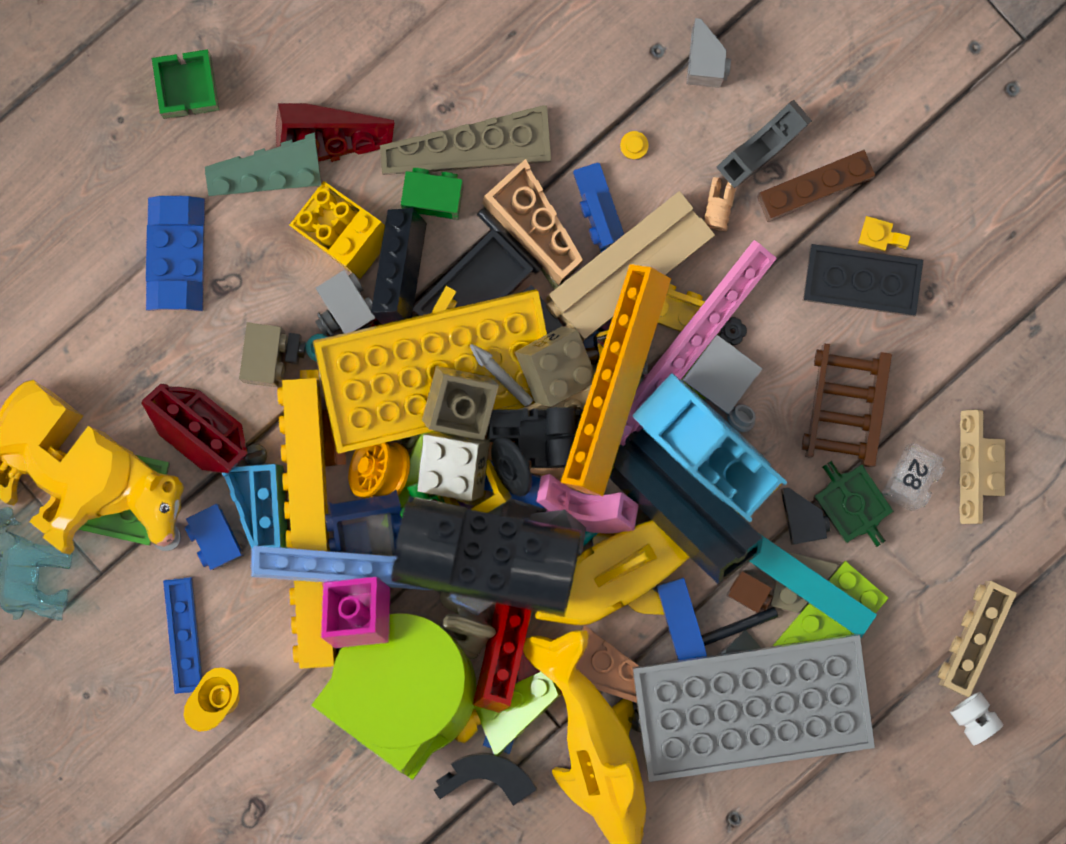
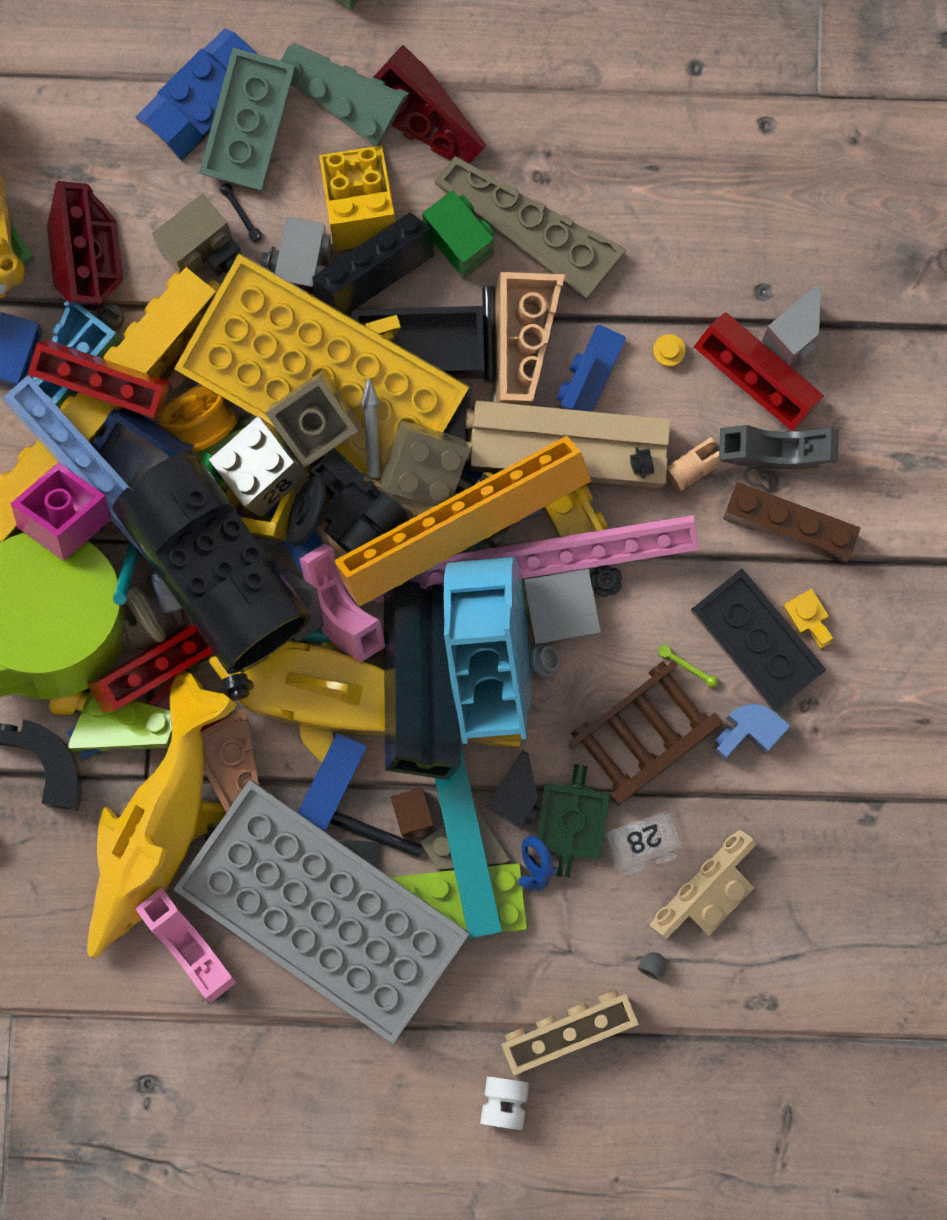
camera: 50 degrees right, 5 degrees down
(223, 245) = (246, 119): none -> sand green plate
(296, 315) = (254, 233): none -> black hinge
(299, 505) = (99, 378): none -> red brick
(434, 613) = (126, 575): none -> teal bar
(572, 619) = (237, 686): none -> black plate
(689, 236) = (642, 462): none -> black plate
(689, 807) = (186, 944): none -> bright pink arch
(705, 107) = (758, 371): none -> red brick
(811, 341) = (665, 652): none -> lime hinge
(863, 553) = (540, 872): none -> blue piece
(912, 334) = (756, 723): none -> medium blue brick
(987, 546) = (653, 965): none -> dark grey hinge

